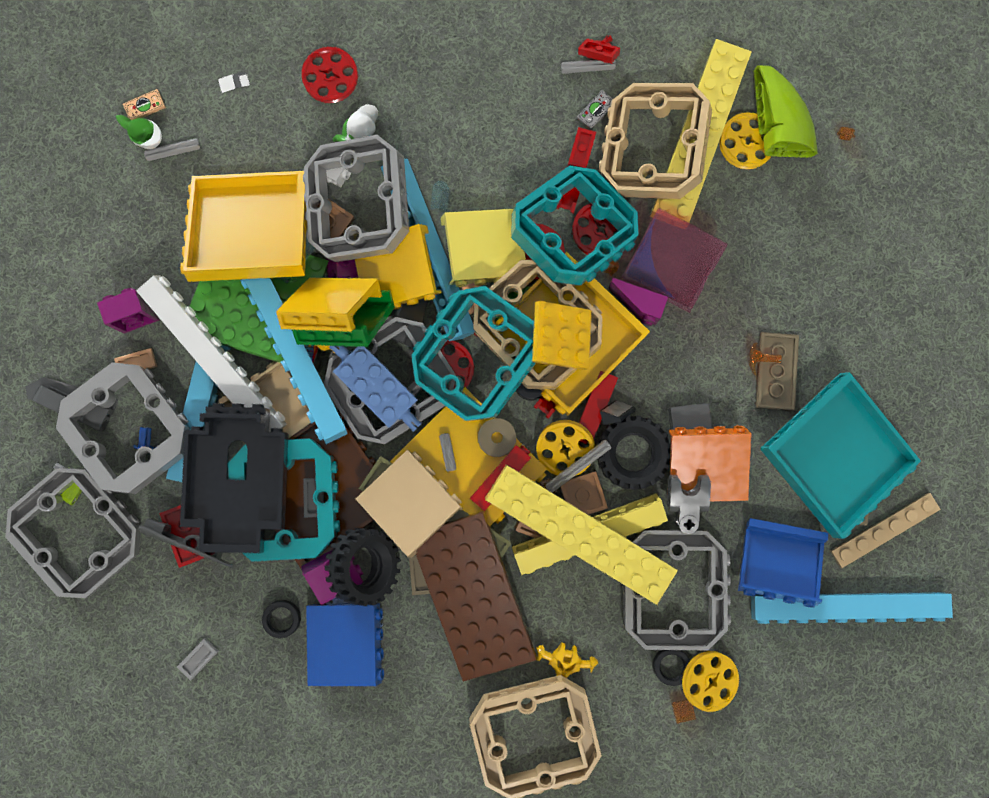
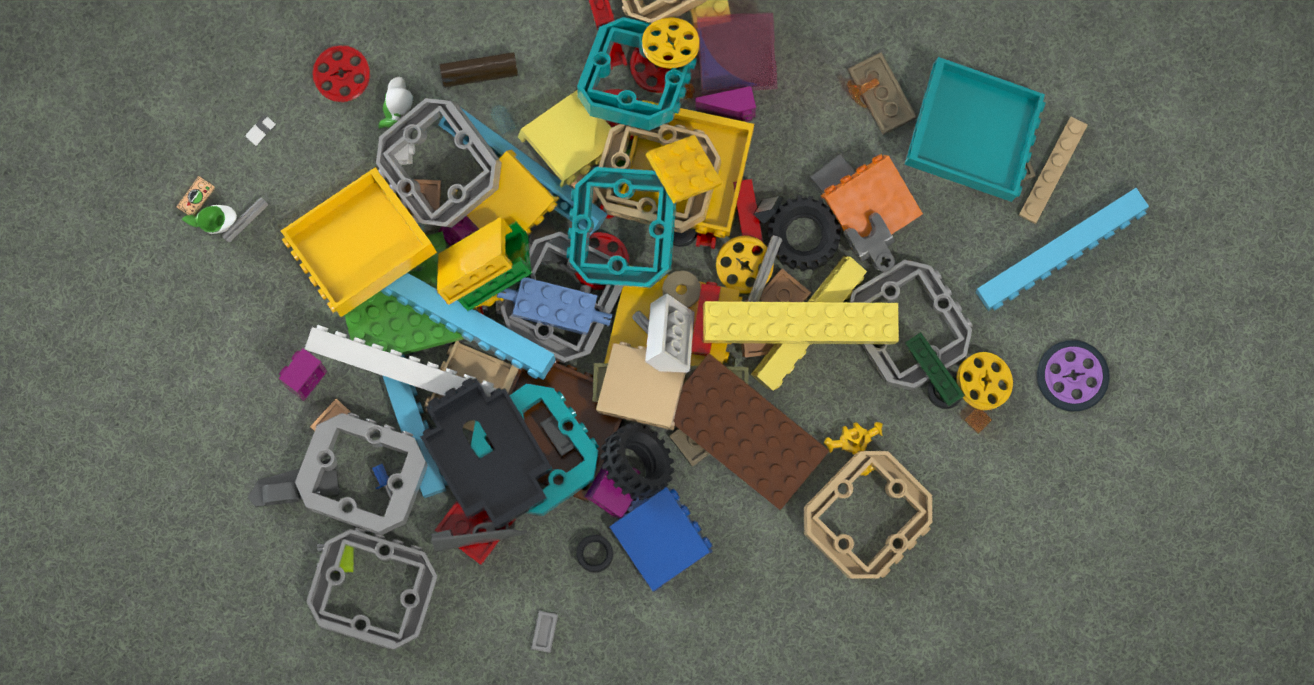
camera: 30 degrees left, 5 degrees down
(445, 141) = (478, 70): none -> dark brown brick
(458, 475) = (669, 335): none -> white slope
(614, 217) = (665, 47): none -> yellow wedge
(673, 647) = (934, 369): none -> dark green plate
(782, 562) = (982, 246): blue panel -> none
(811, 706) = (1082, 351): none -> wedge

